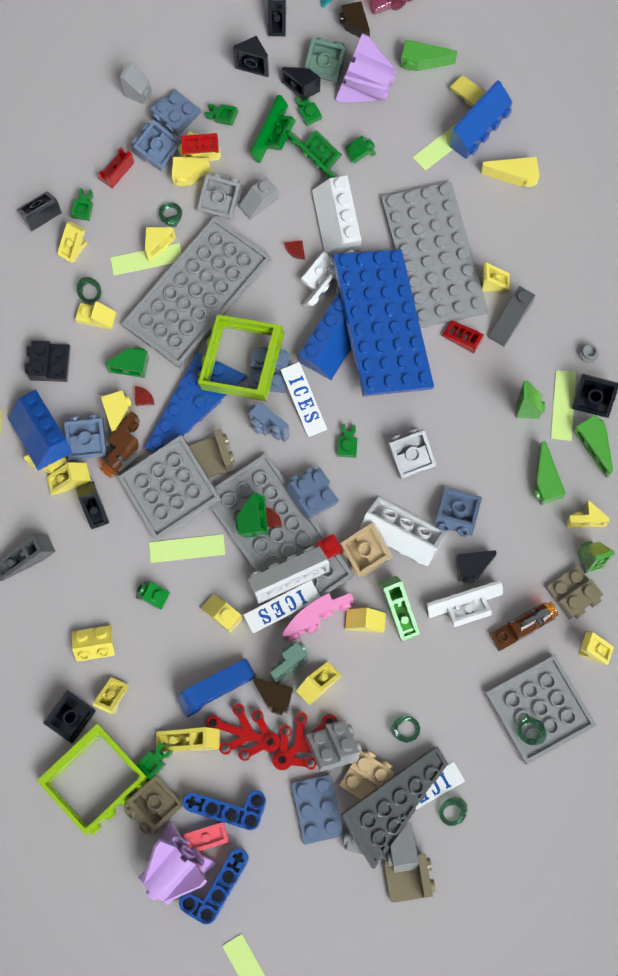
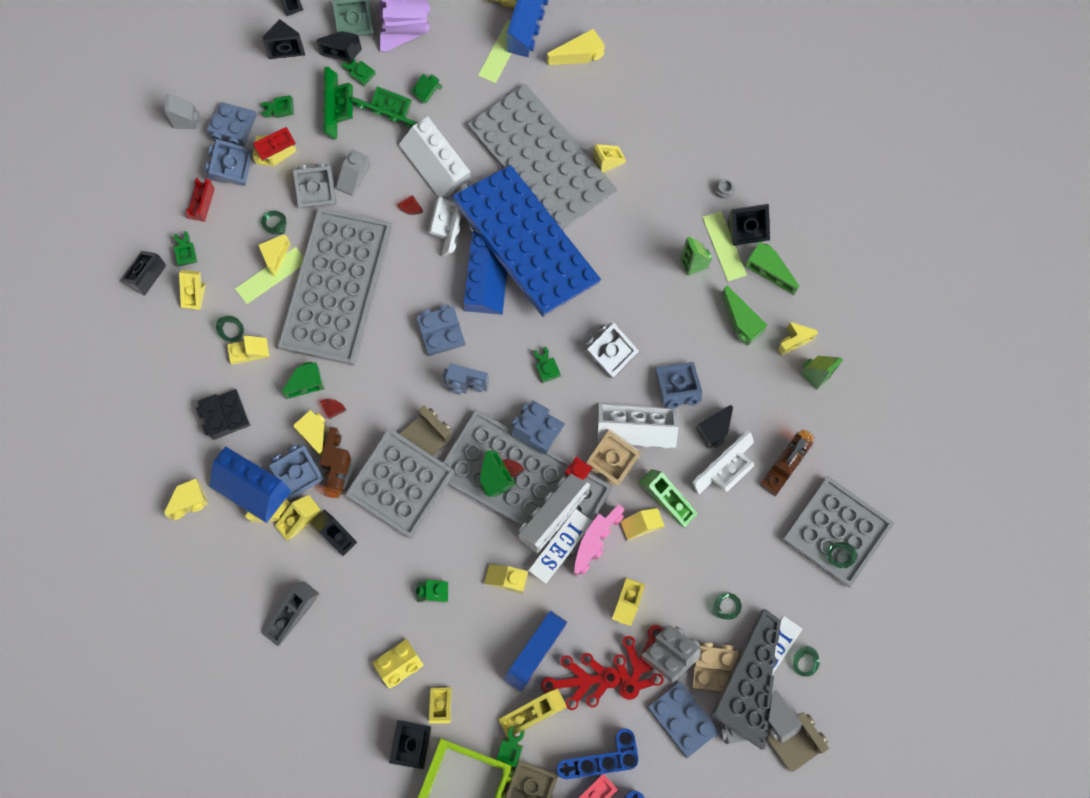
camera: 30 degrees left, 0 degrees up
(187, 548) = (443, 532): yellowish green sticker -> none
(189, 170) = (272, 173): light yellow slope -> none
(191, 403) = (383, 382): blue wing -> none
(208, 361) = (376, 303): lime window -> none
(275, 695) = (593, 632): dark brown slope -> none
(292, 657) = (594, 589): sand green plate -> none
(303, 399) = (486, 343): white sticker -> none
(472, 347) = (612, 215): red slope -> none
(512, 316) = (640, 184): dark grey slope -> none
(575, 592) = (817, 411): dark tan plate -> none
(596, 648) = (859, 453): light yellow slope -> none

